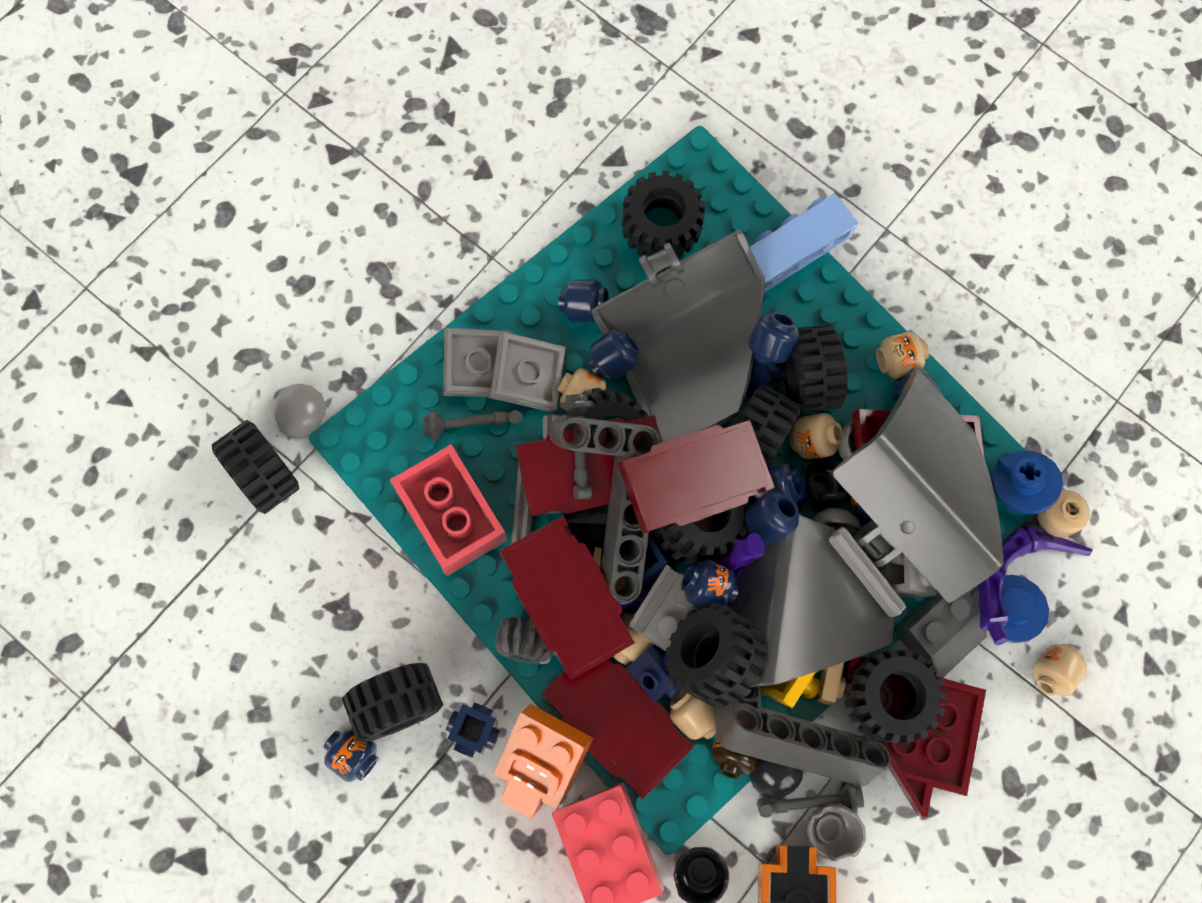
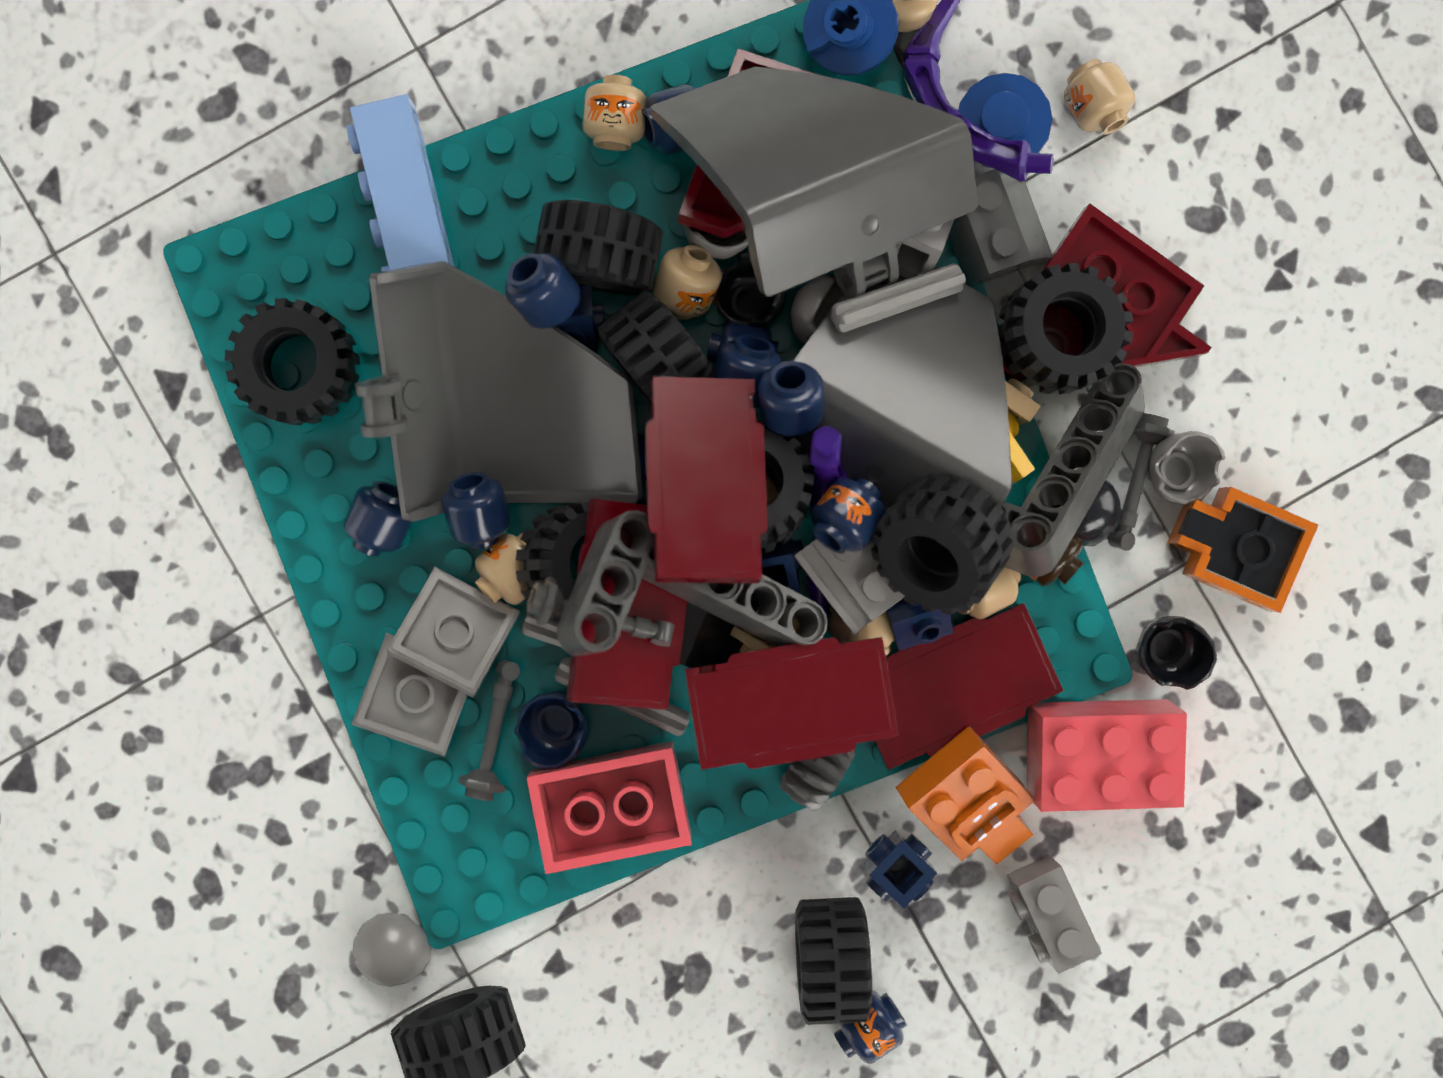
camera: 60 degrees left, 15 degrees up
(472, 864) = (1053, 913): none -> light grey brick
(487, 455) = (551, 730): none -> dark blue hair

